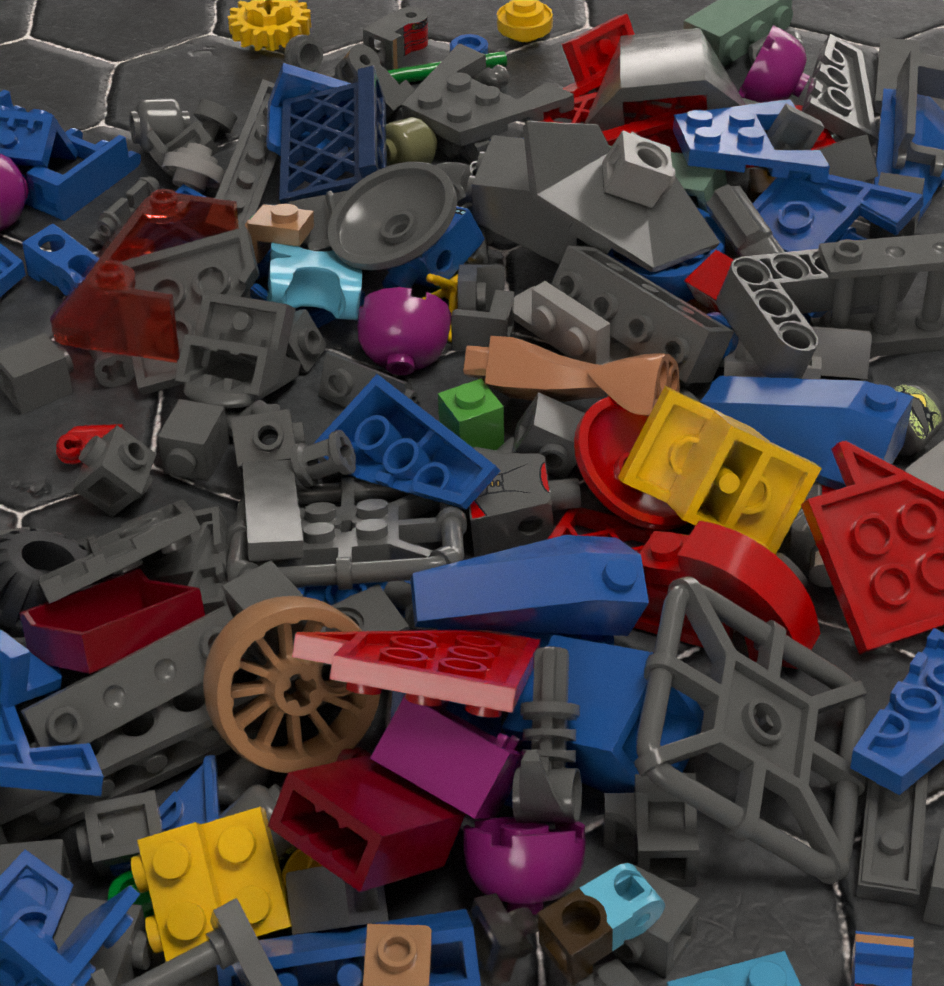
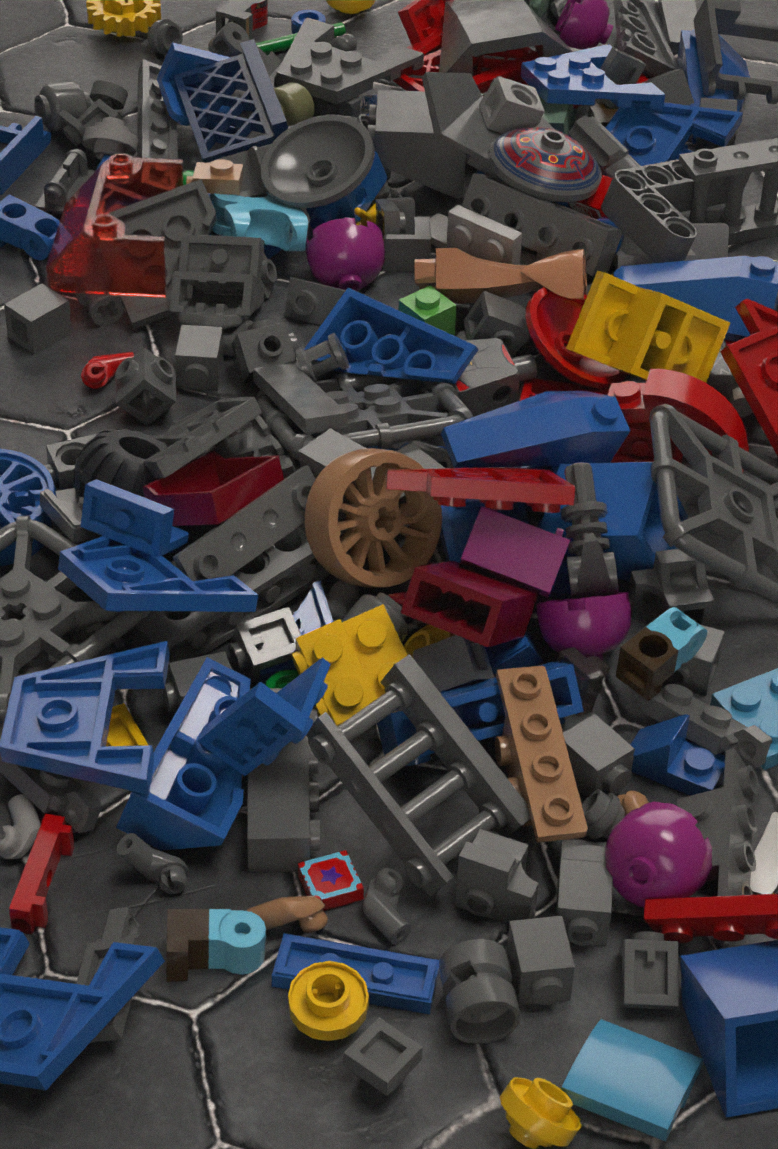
camera: 15 degrees left, 0 degrees up
(438, 885) = (514, 654): none -> blue slope
(660, 242) = (545, 164): none -> dish

